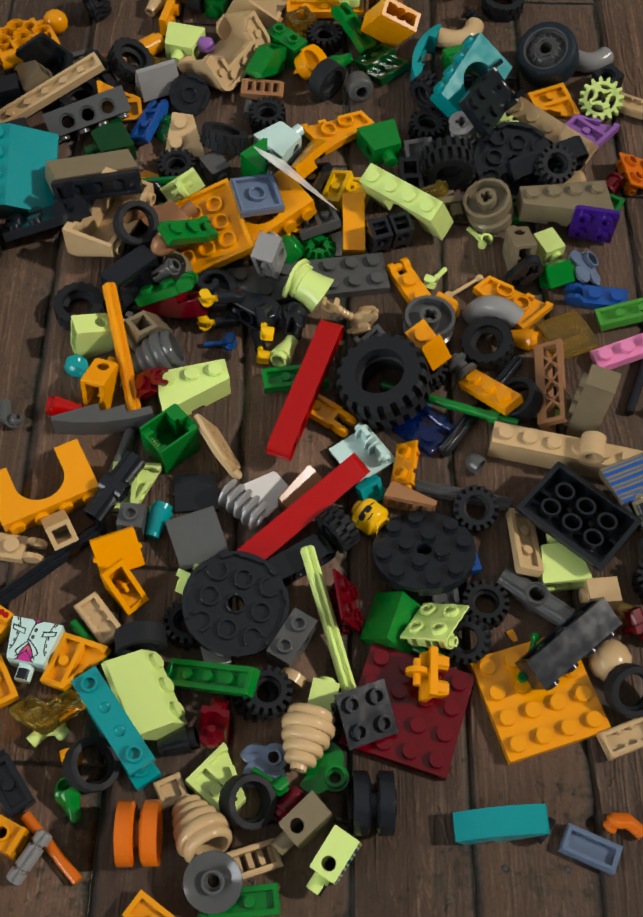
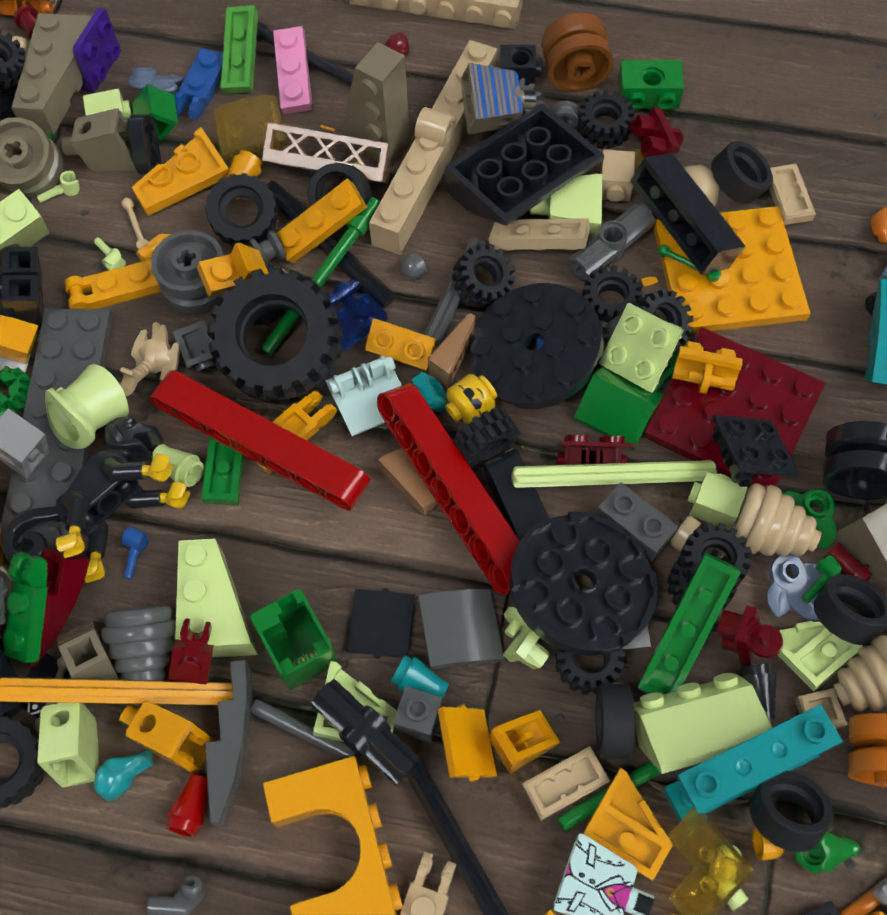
camera: 75 degrees left, 5 degrees up
(59, 529) = (415, 827): tan brick -> none
(218, 446) = (329, 571): tan tile -> none
(243, 506) = (424, 550): light grey piece -> none
(268, 487) = (397, 526): white sticker -> none
(491, 307) = (192, 189): light grey cylinder -> none

